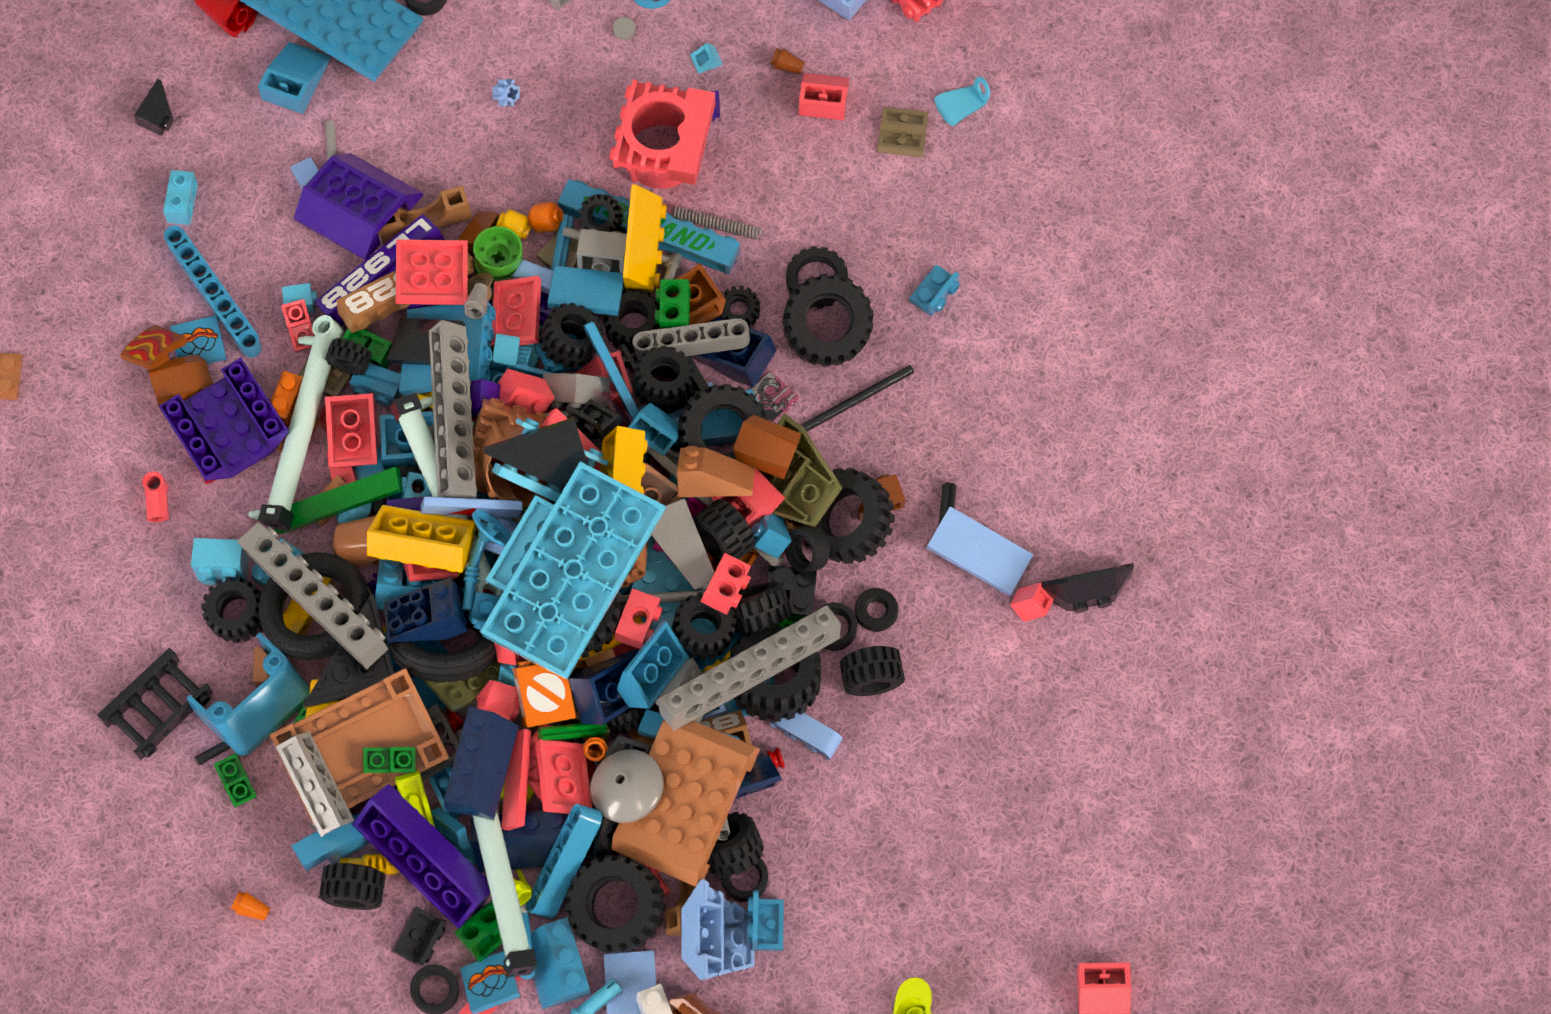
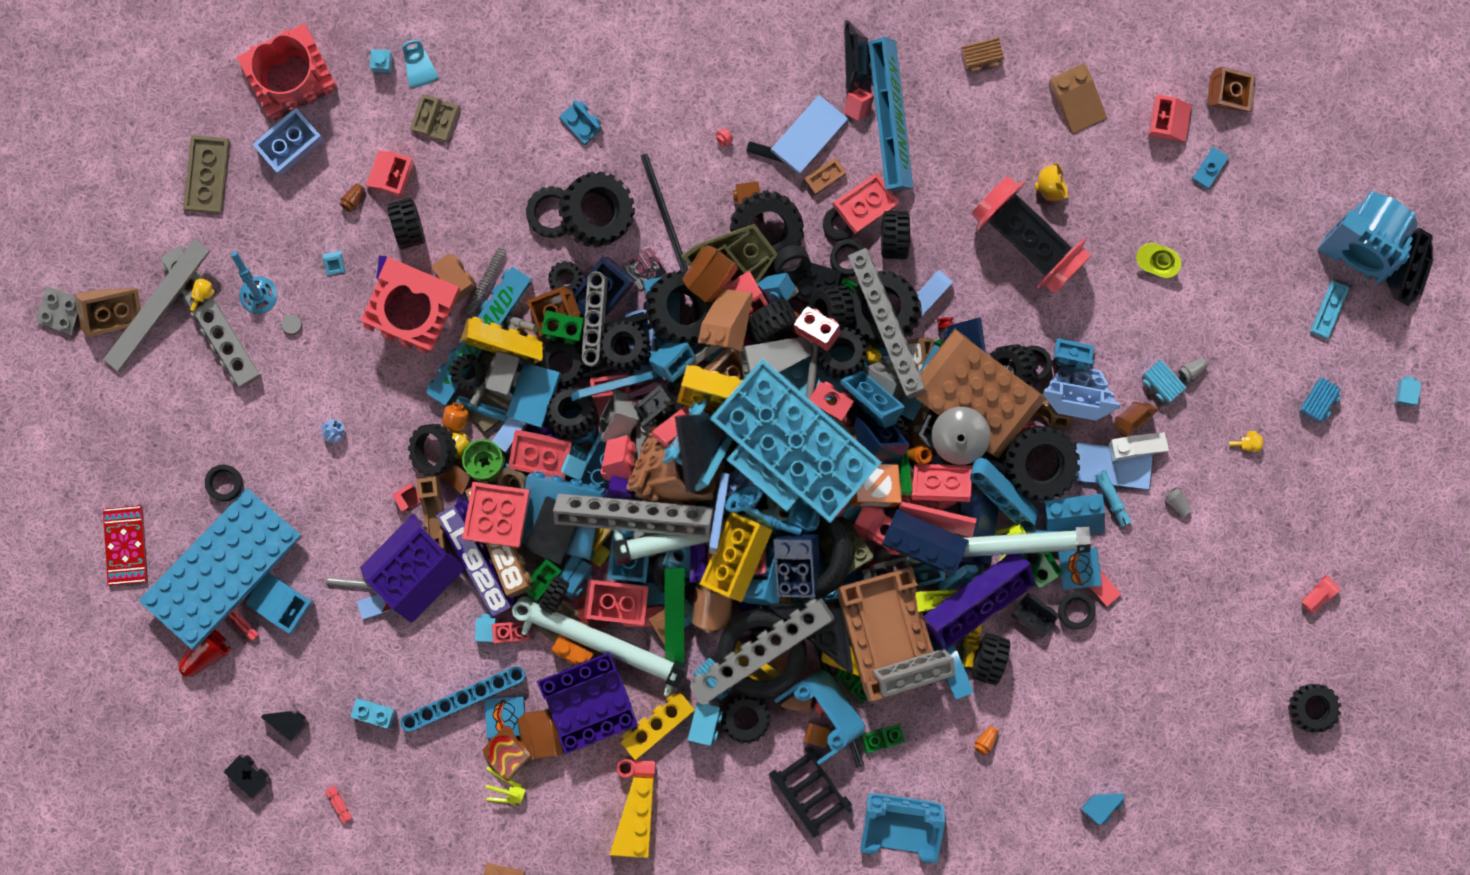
camera: 80 degrees left, 15 degrees up
(69, 184) = (338, 804): none -> coral axle
(89, 81) = (237, 774): none -> black brick
(89, 508) = (635, 823): none -> yellow wedge
(105, 368) = (514, 794): none -> neon yellow plant
(129, 820) = (903, 825): none -> dark azure windscreen
(188, 485) = (636, 748): none -> yellow brick
(226, 689) = (816, 735): none -> dark orange slope
(264, 45) = (243, 625): none -> coral axle
(388, 760) = (904, 613): green slope -> none
(438, 181) = (407, 497): none -> coral panel
(476, 303) = (532, 482): light grey cone -> none
(506, 208) = (447, 446): none -> black tyre
(715, 181) = (451, 271): none -> nougat brick
(765, 117) = (406, 223): none -> black tyre
(906, 832) = (1030, 234): none -> brick
(908, 630) = (865, 203): none -> coral plate
(931, 580) = (825, 176): none -> nougat plate
(952, 453) = (724, 137): none -> coral plate
(955, 59) = (381, 61): none -> medium azure brick
(984, 855) = (1051, 183): none -> yellow cylinder
(1026, 640) = (890, 114): none -> dark azure brick
(1104, 869) = (1077, 98): none -> medium nougat slope
(1132, 740) = (982, 54): none -> medium nougat brick

